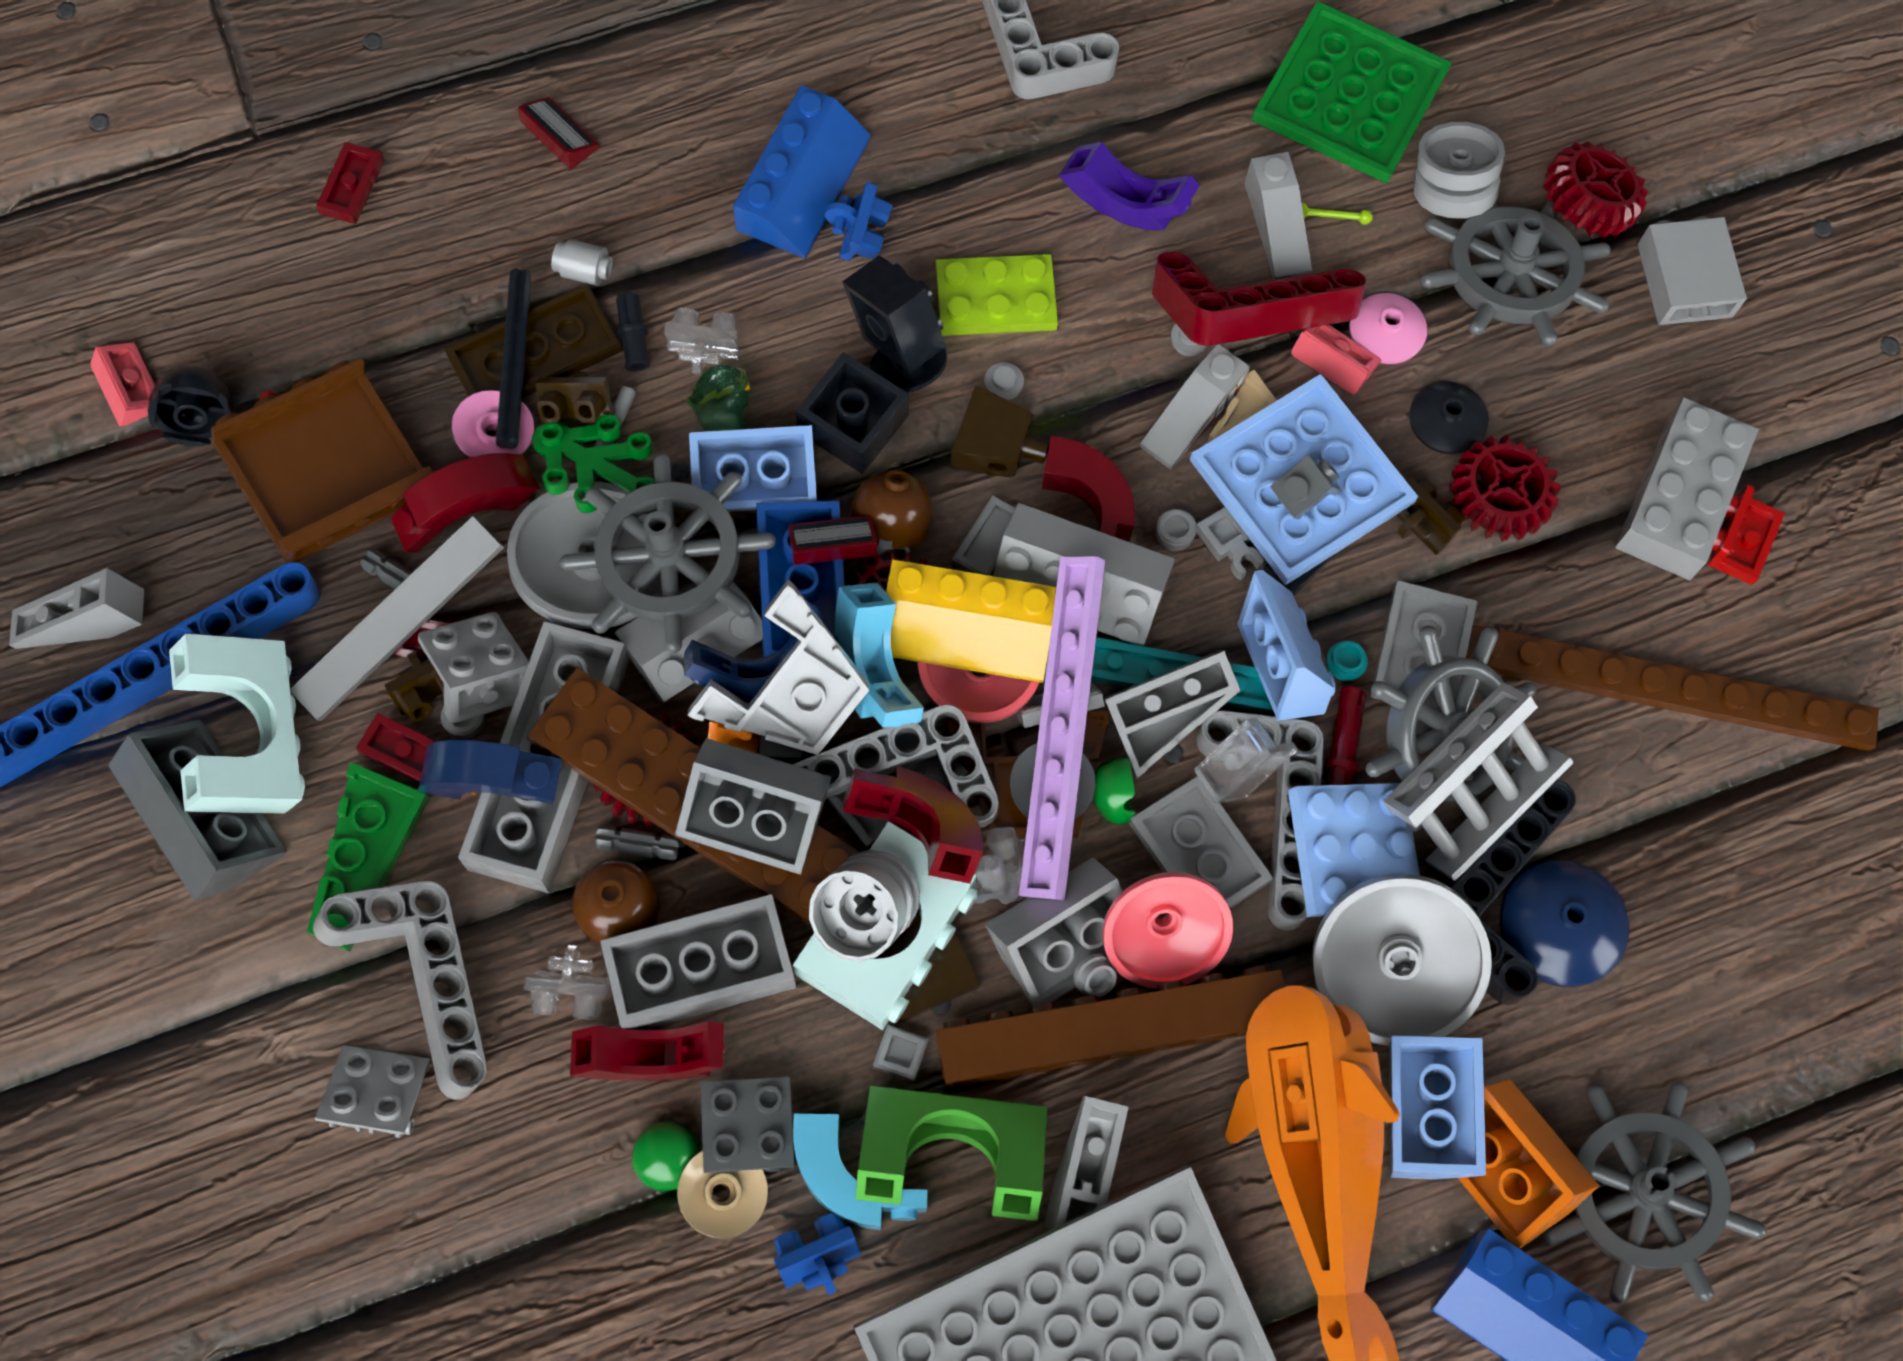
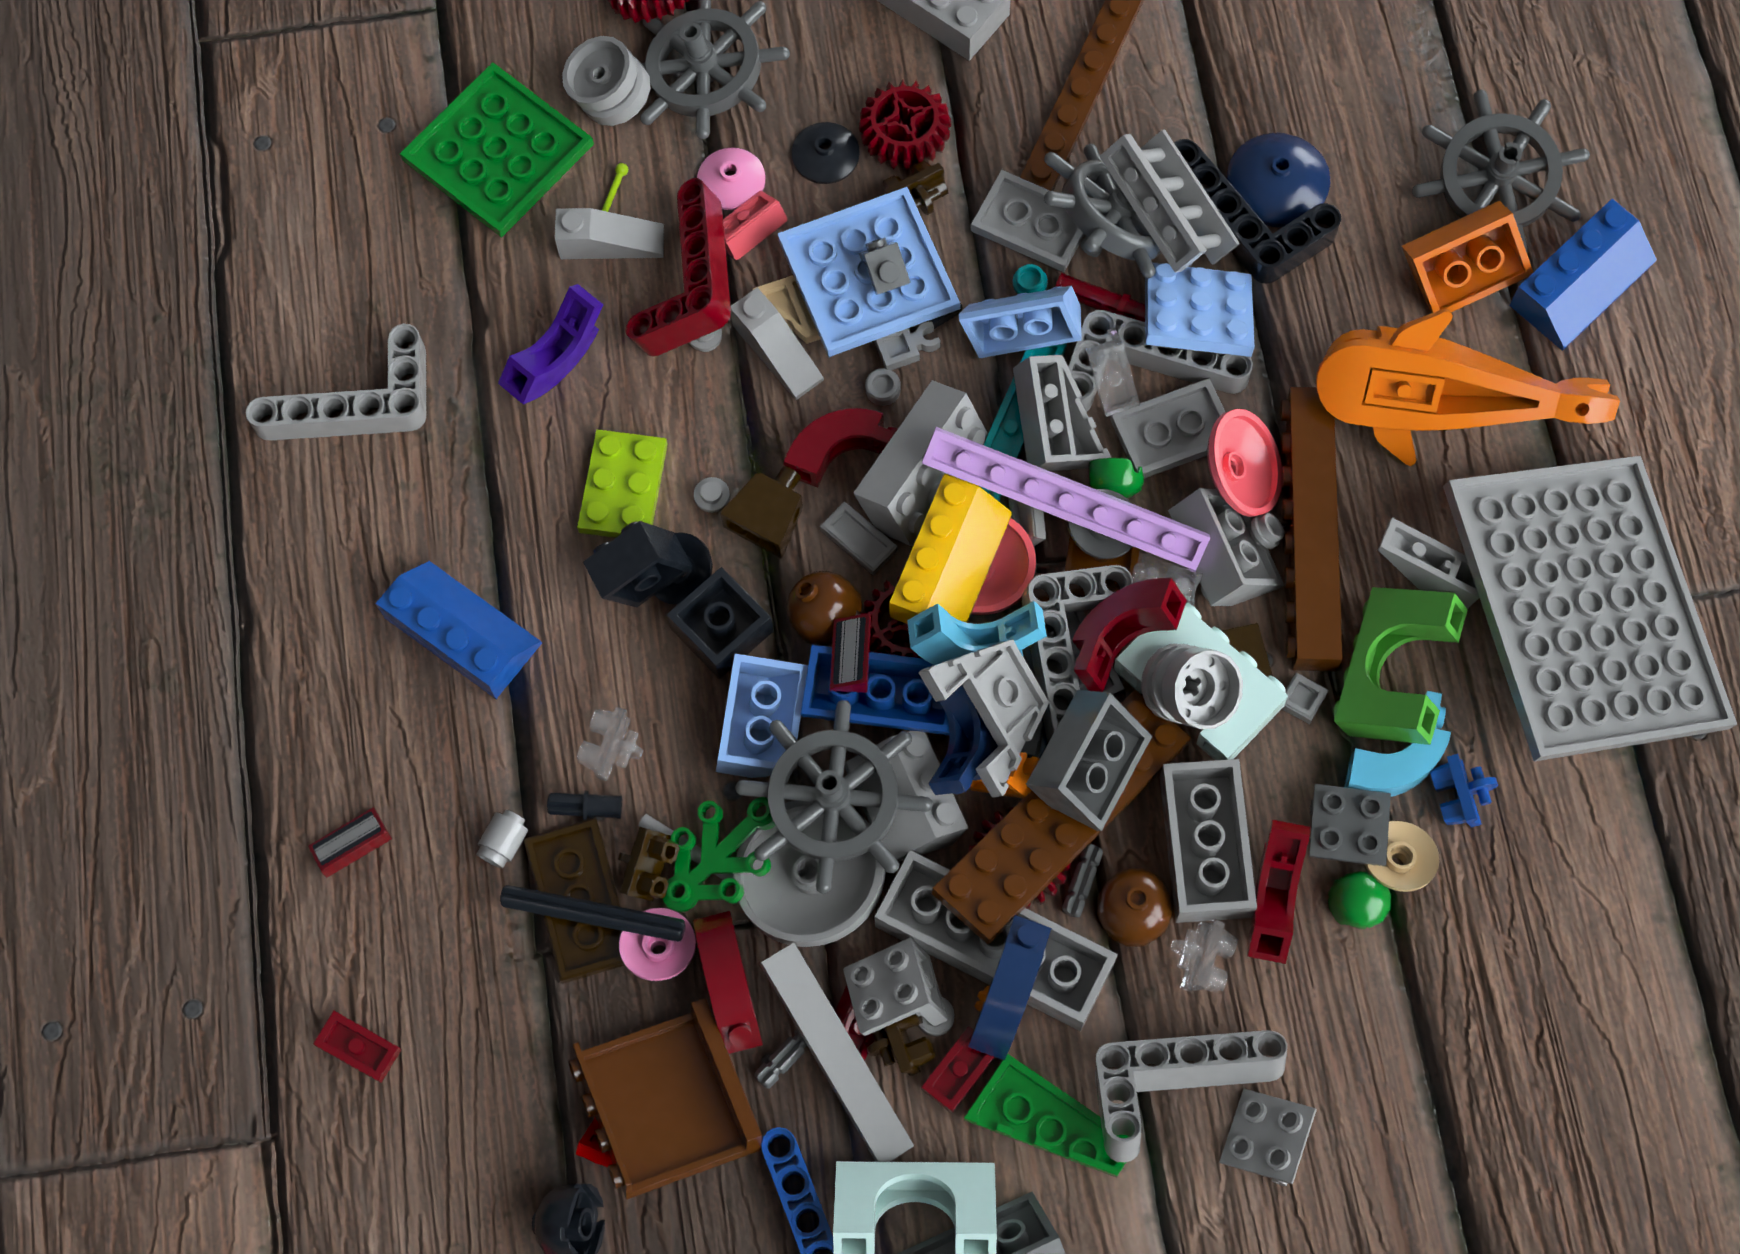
camera: 70 degrees left, 0 degrees up
(721, 398) = (678, 735): clear green hair -> none
(855, 219) = (522, 587): blue hips -> none
(1403, 956) = (1298, 294): light grey dish -> none
(1440, 1107) = (1412, 288): light blue slope -> none

